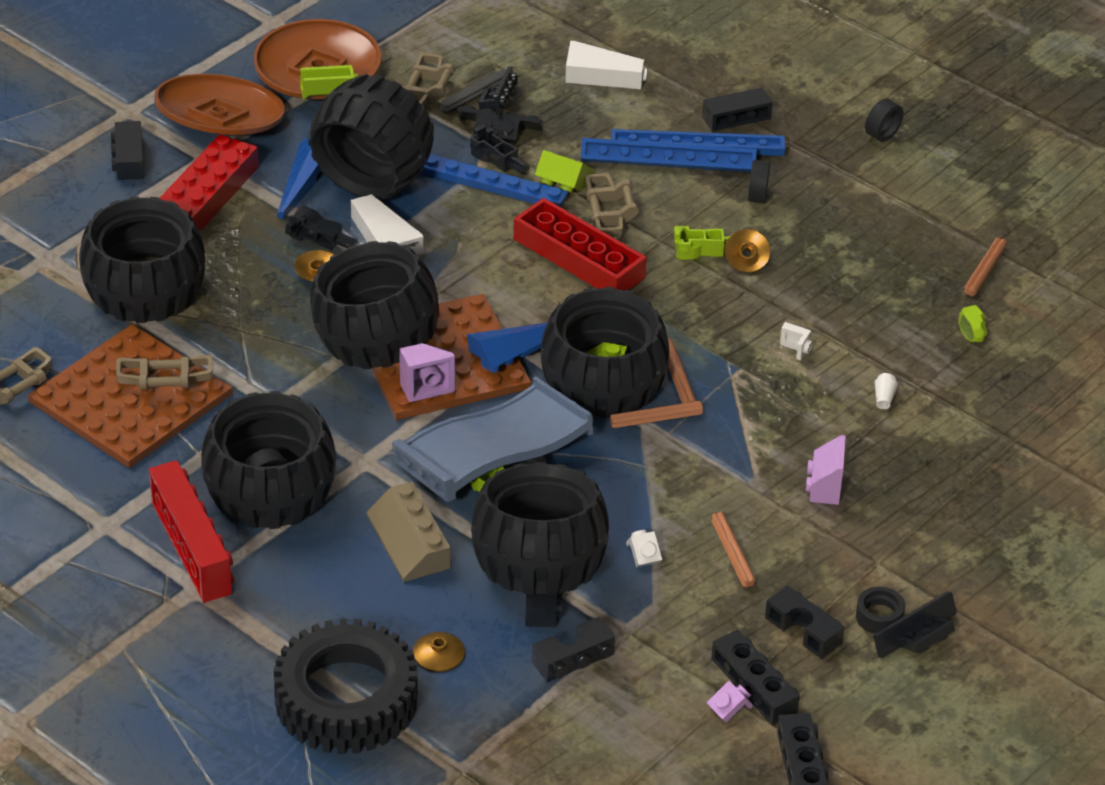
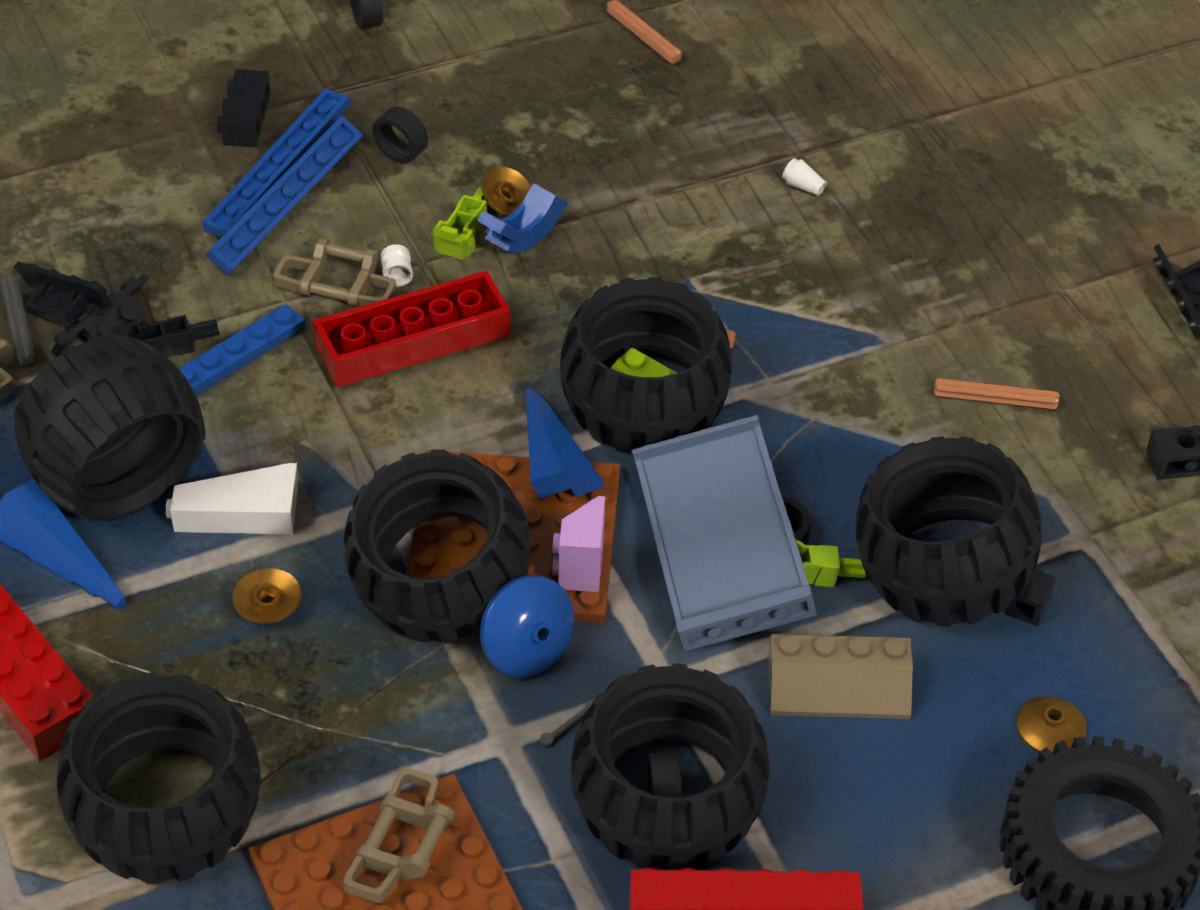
camera: 65 degrees left, 5 degrees up
(310, 225) = (187, 572): black piece -> none
(359, 367) = (513, 623): none -> blue dish
(556, 659) = (1110, 568): black arch -> none
(562, 171) = (251, 293): lime slope -> none
(603, 67) = (72, 189): white slope -> none
(637, 225) = (396, 264): none -> white wheel
(656, 414) = (739, 369): nougat axle -> none
(719, 270) = (527, 223): none -> blue arch
(797, 339) = (682, 210): white bracket -> none
(821, 630) = (1167, 368): black arch -> none
(826, 472) = (925, 263): lavender slope -> none
(879, 596) = (1146, 327): black tyre -> none
(973, 323) = (739, 74): lime rock -> none

